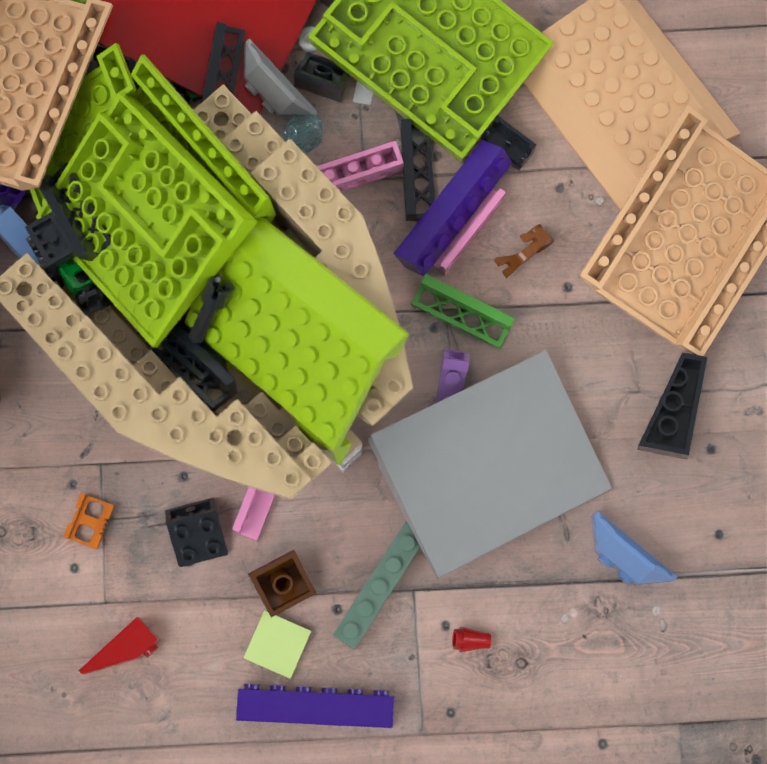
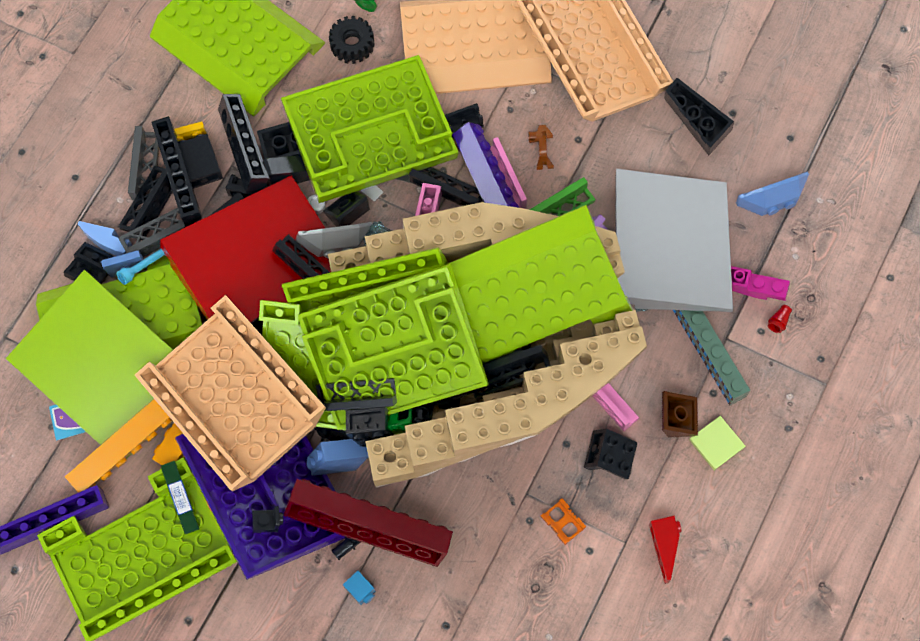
camera: 50 degrees left, 10 degrees down
(214, 298) = (481, 324): black piece -> none
(314, 707) = (774, 440): dark purple brick -> none
(497, 591) = (758, 285): none -> dark pink slope

